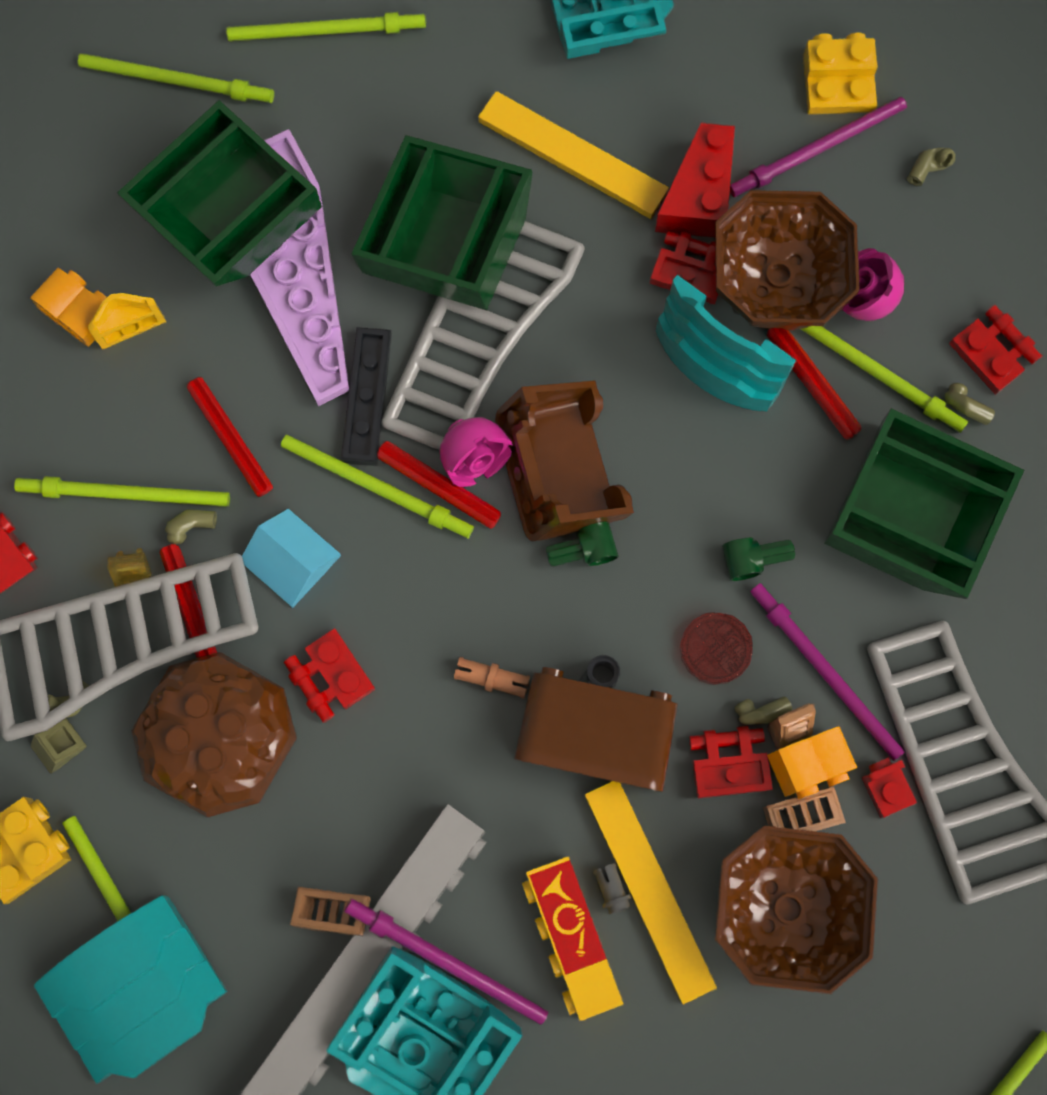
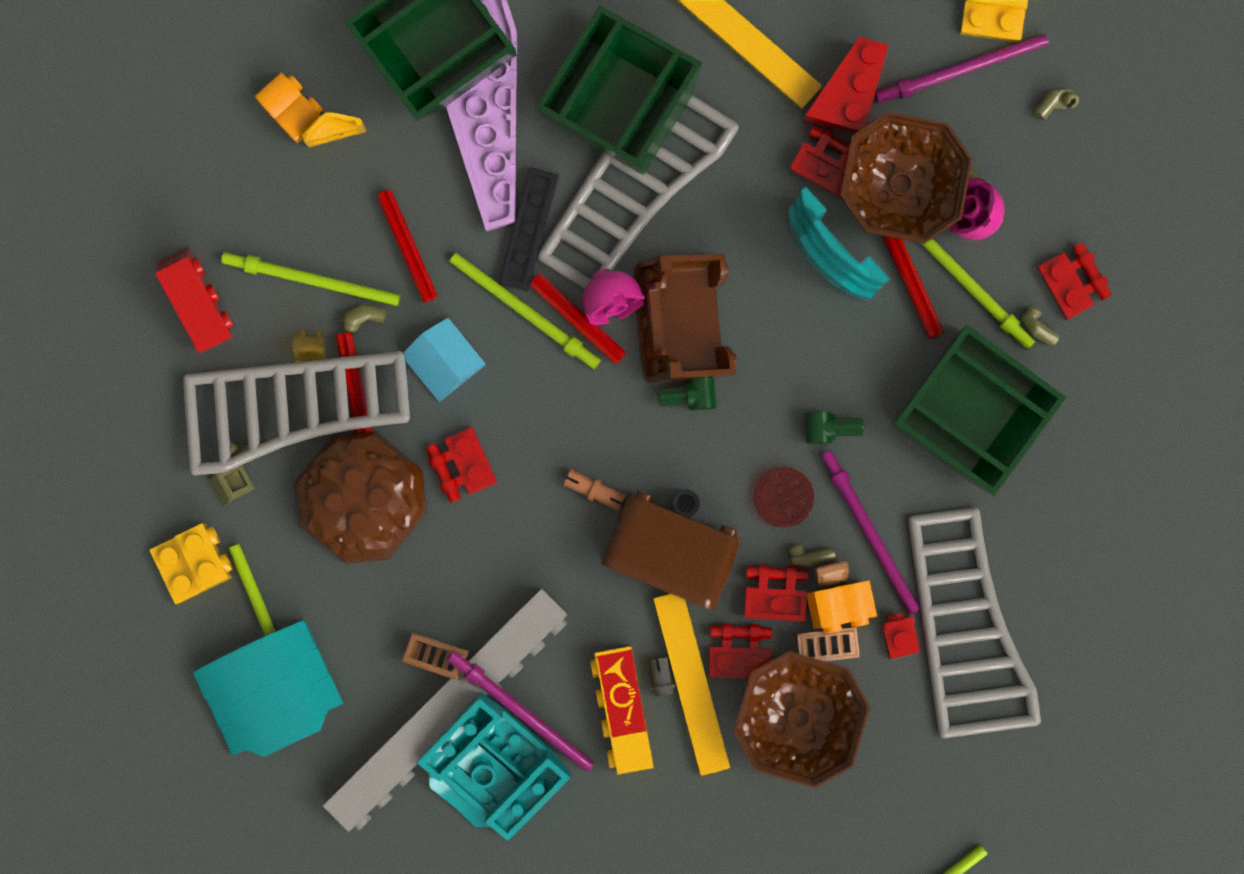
camera: 10 degrees right, 10 degrees up
(698, 854) = (738, 661): none -> red plate

